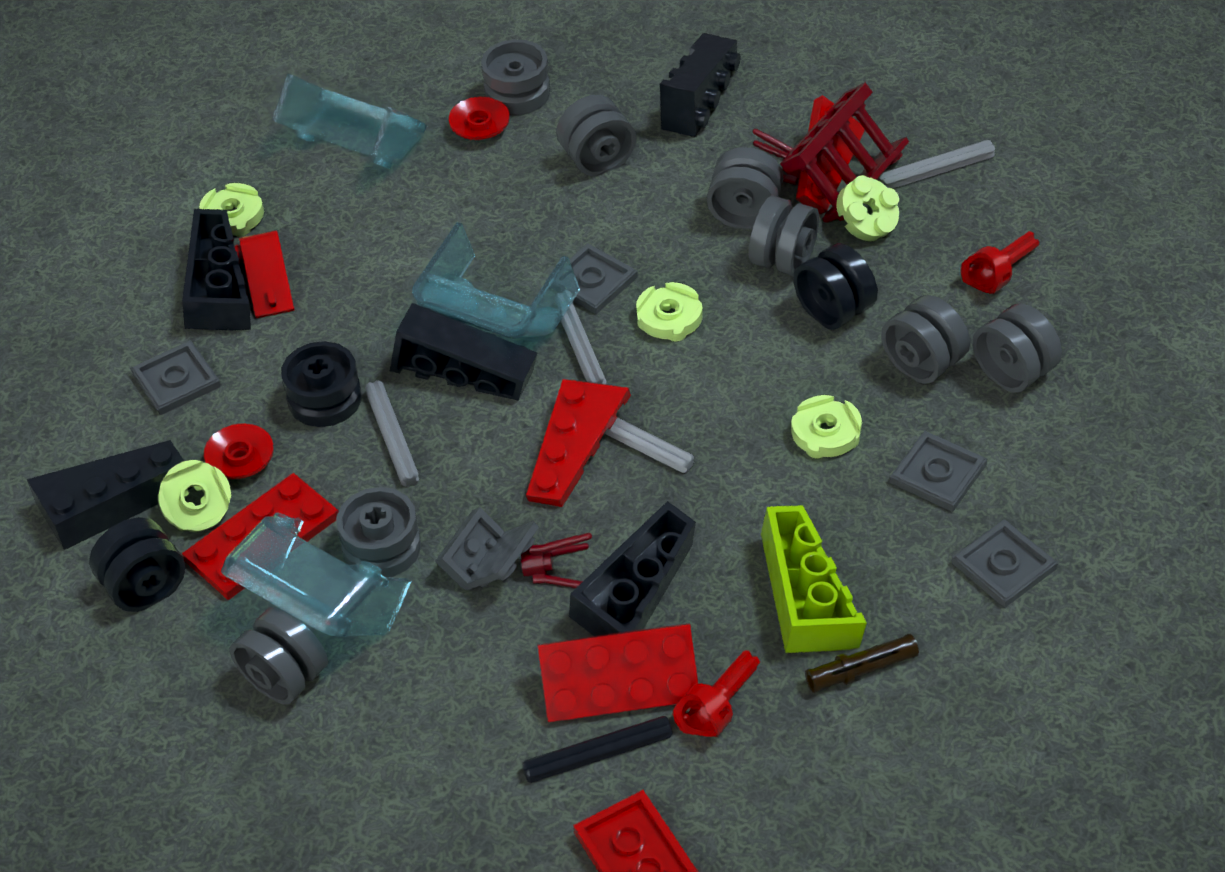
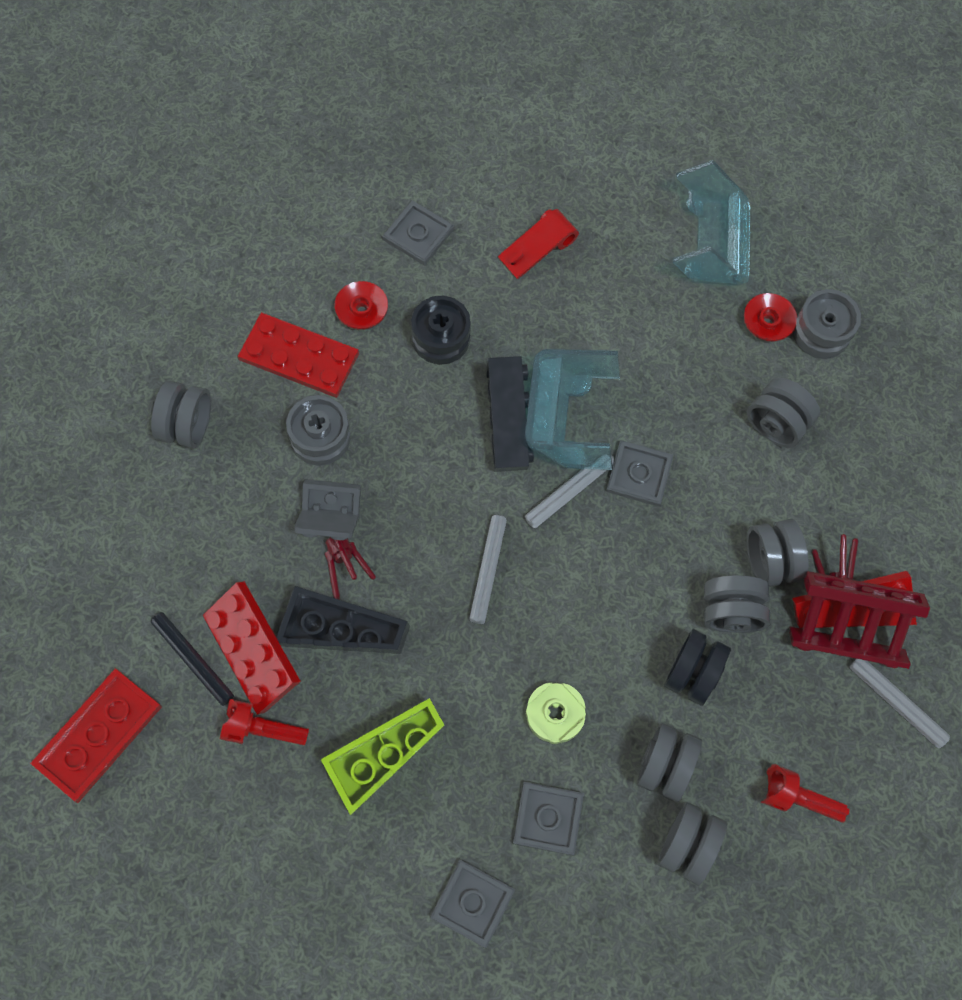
camera: 60 degrees right, 20 degrees up
(102, 492) = (290, 240): black wedge -> none
(137, 564) = (227, 289): black wheel -> none
(202, 477) = (319, 291): yellowish green plate -> none
(213, 279) = (516, 208): black wedge -> none
(244, 198) = (592, 203): yellowish green plate -> none
(312, 583) = (225, 400): clear light blue windscreen -> none
(392, 433) = (423, 398): light grey axle -> none
(572, 436) = (472, 524): red wing -> none
(673, 325) = (638, 534): yellowish green plate -> none
(697, 84) = (894, 467): black wedge -> none
(822, 677) = (330, 823): dark brown pin -> none
(880, 199) = (820, 674): yellowish green plate -> none

